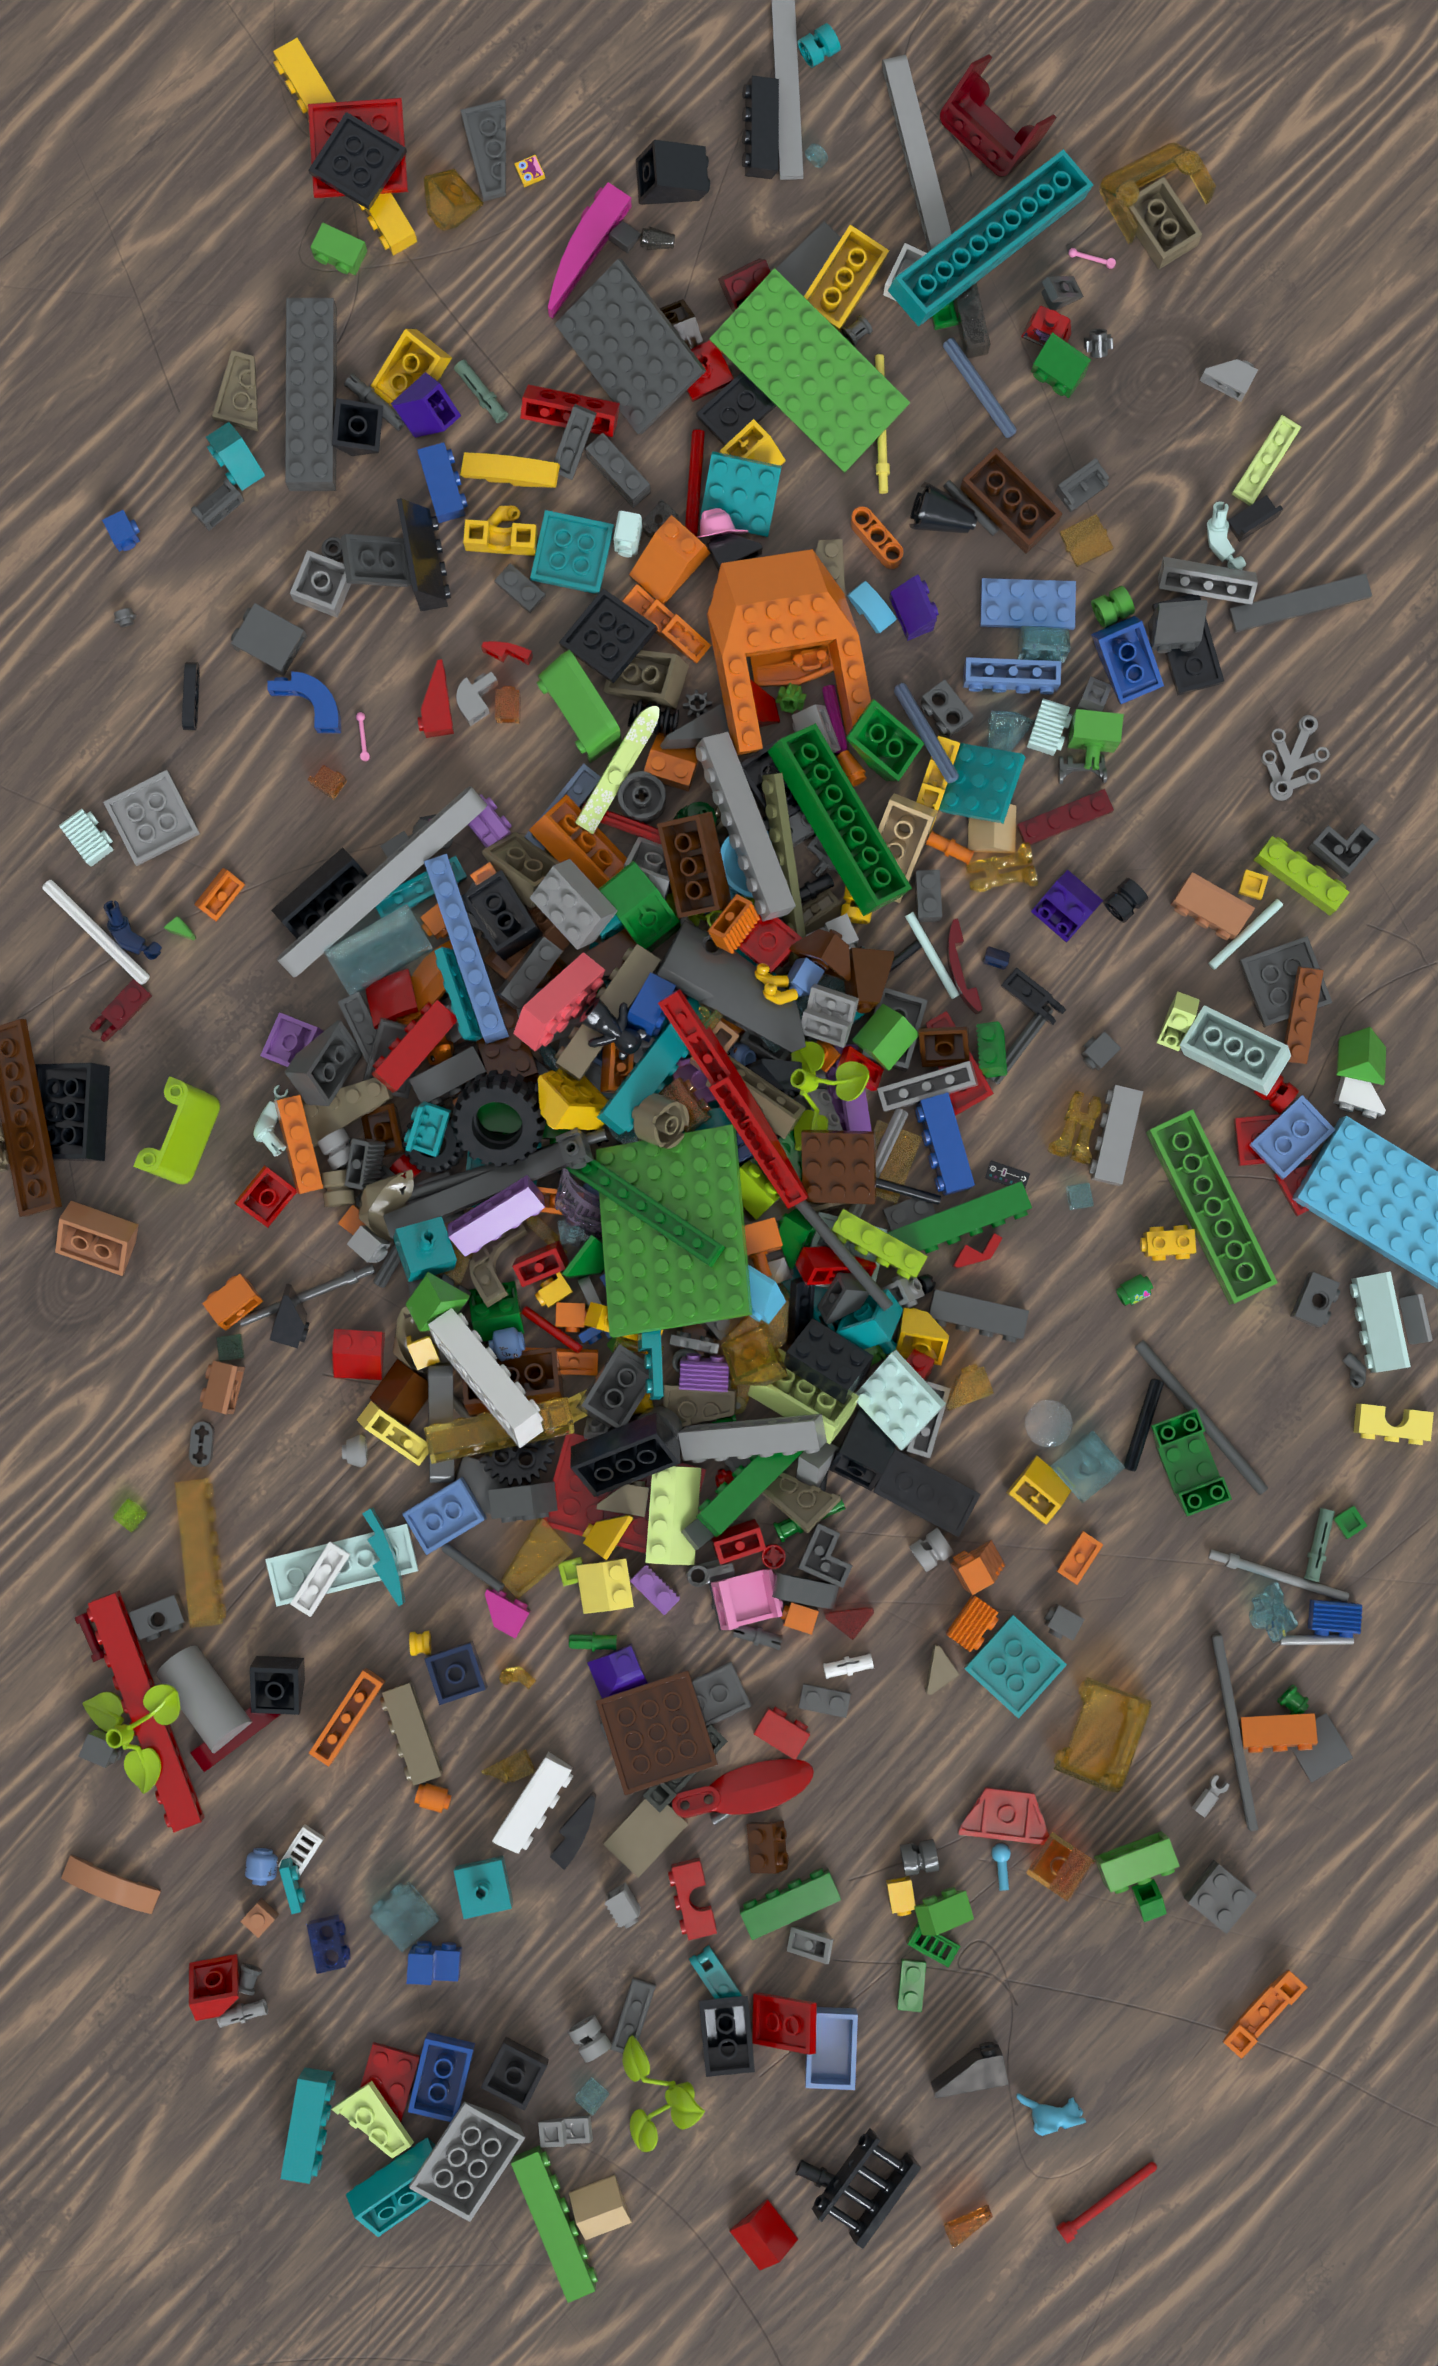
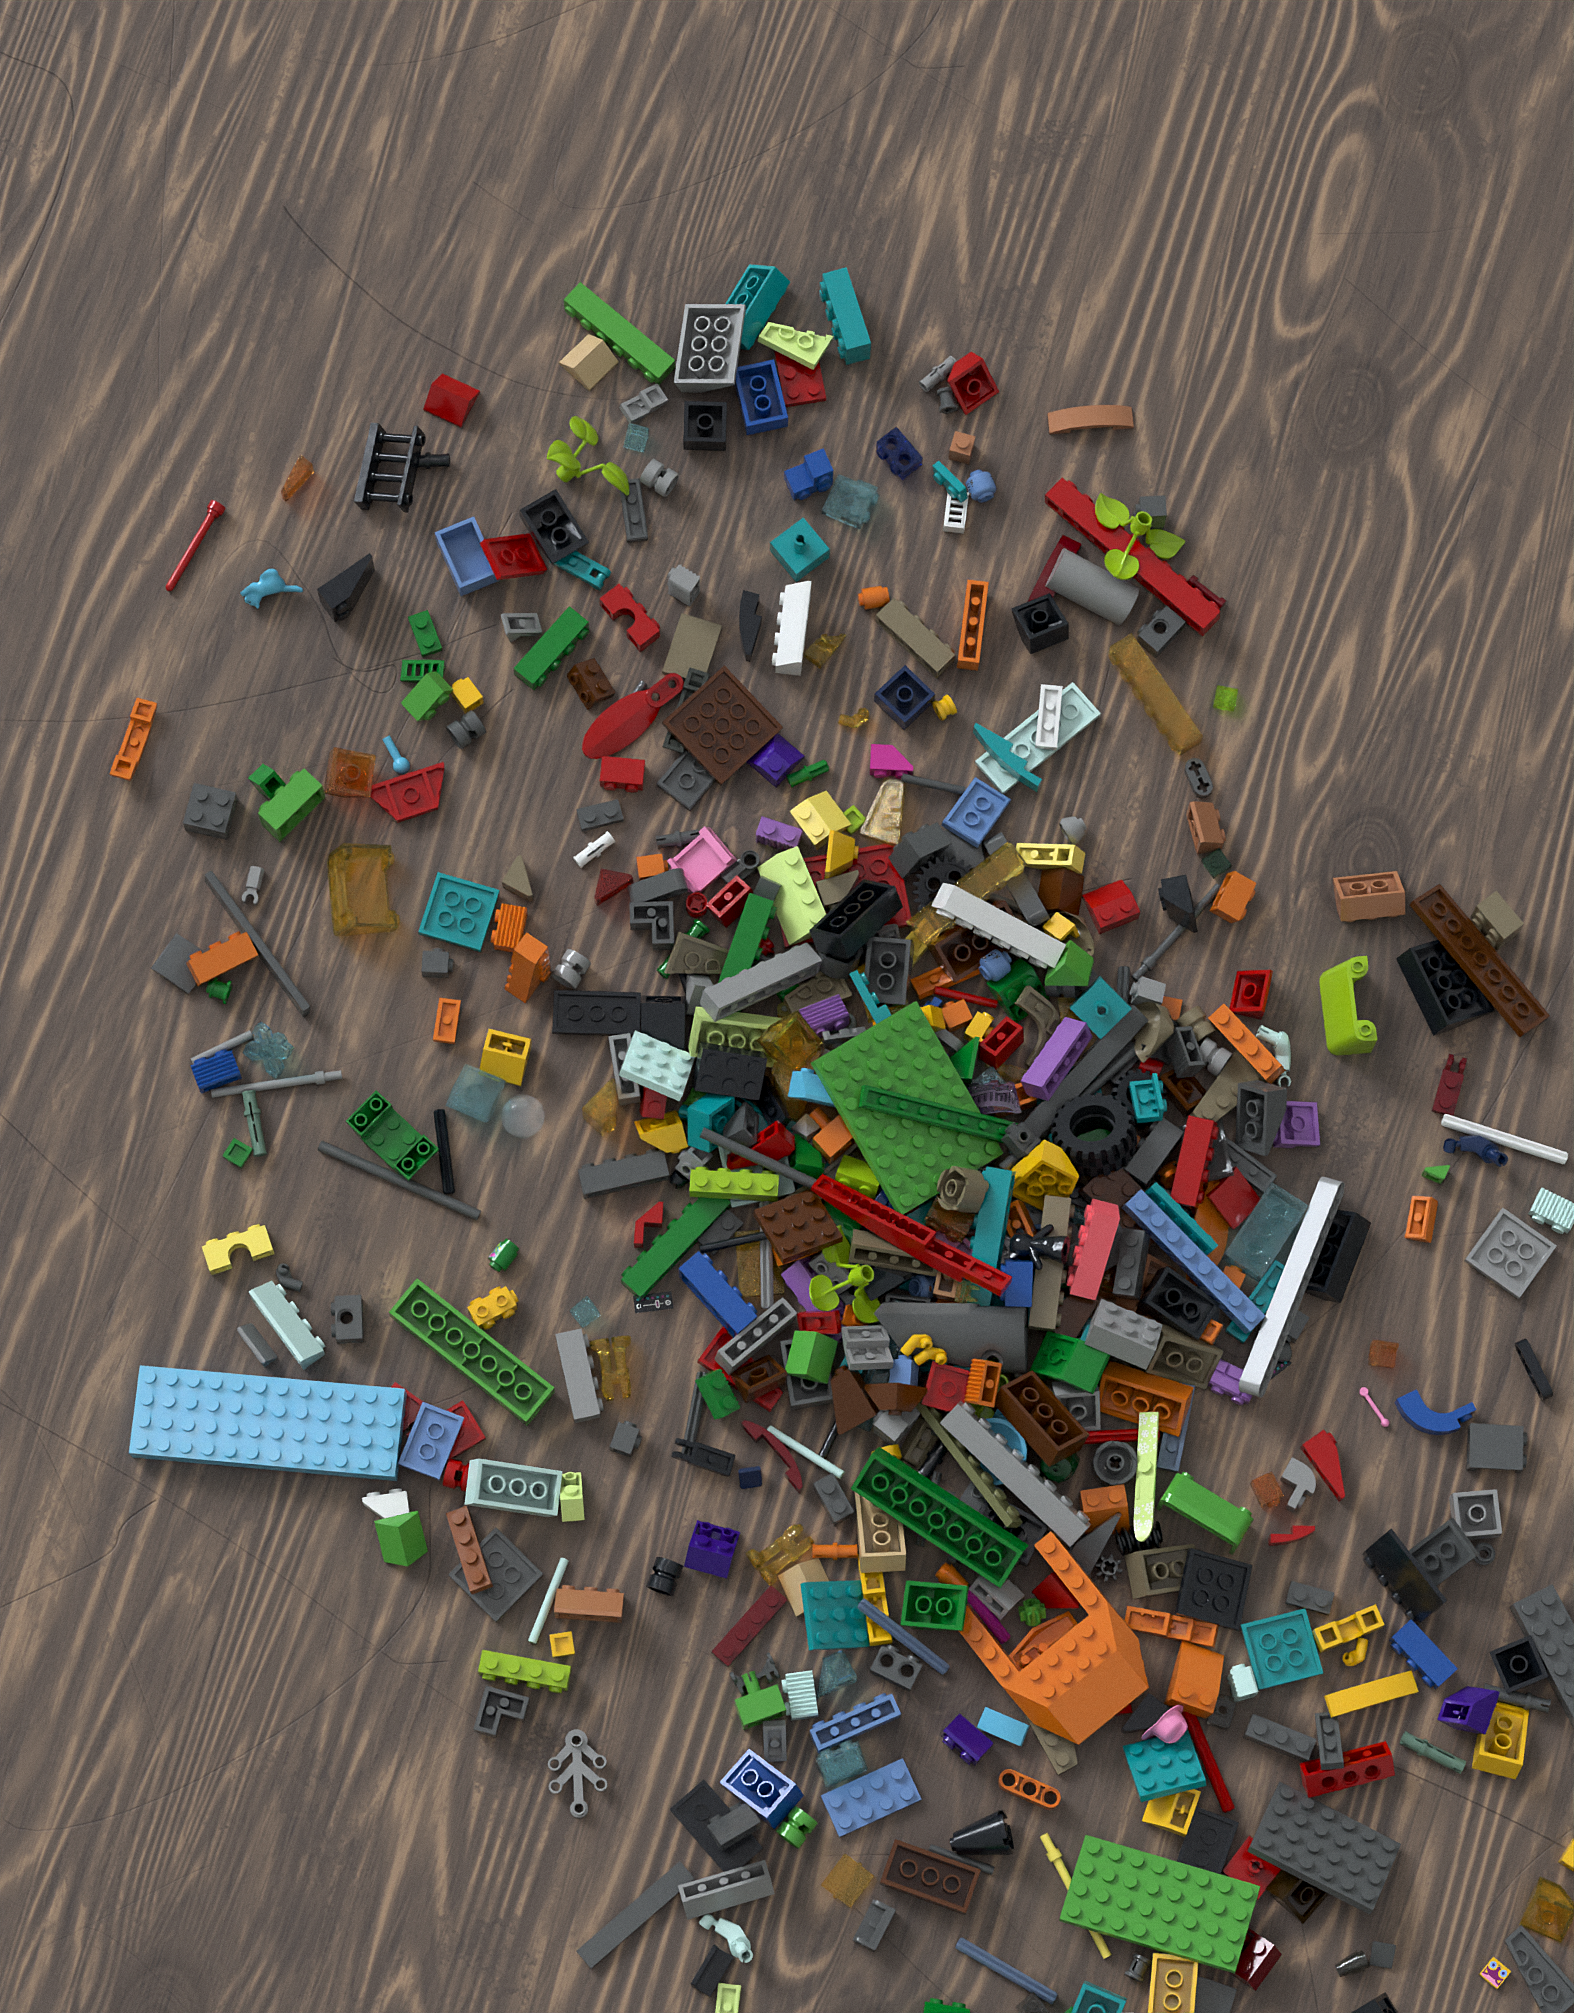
camera: 155 degrees right, 10 degrees down
(587, 241) = (1411, 1931): dark pink slope -> none

